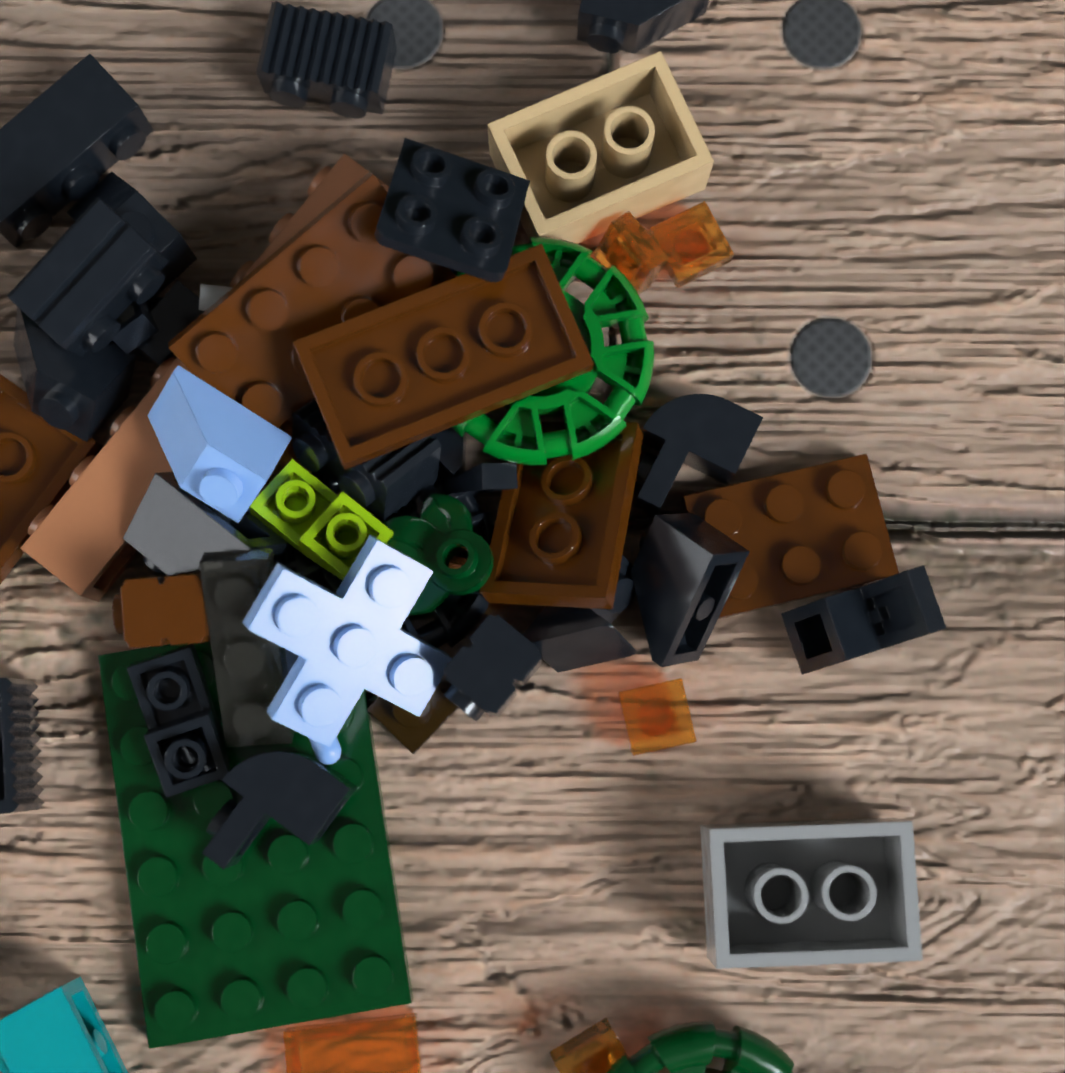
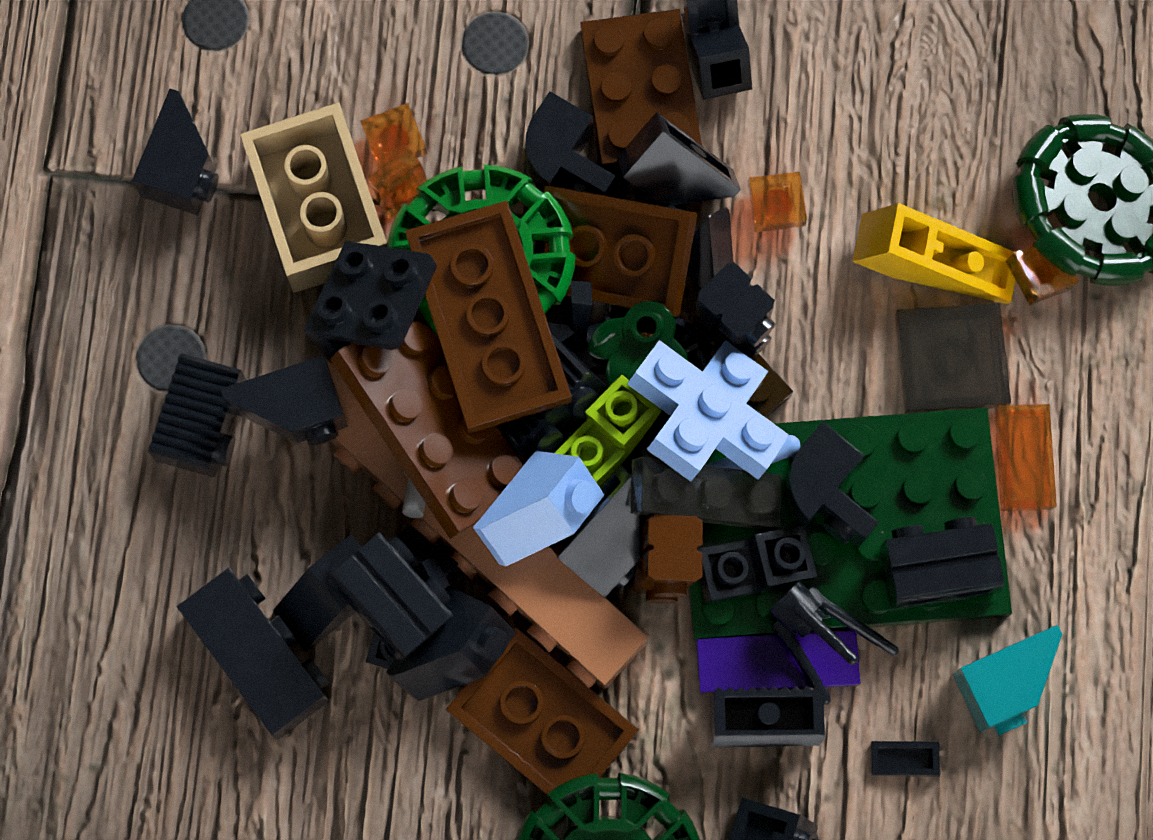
camera: 85 degrees left, 5 degrees down
(77, 761) = (769, 663): none -> dark purple tile
(114, 778) = (801, 613): none -> black plant
(187, 955) = (941, 563): none -> black brick
(324, 142) = (291, 401): none -> black slope
(474, 955) = (952, 358): none -> clear smoke tile
(604, 923) = (932, 254): none -> yellow slope
(810, 893) = (920, 99): light grey brick -> none

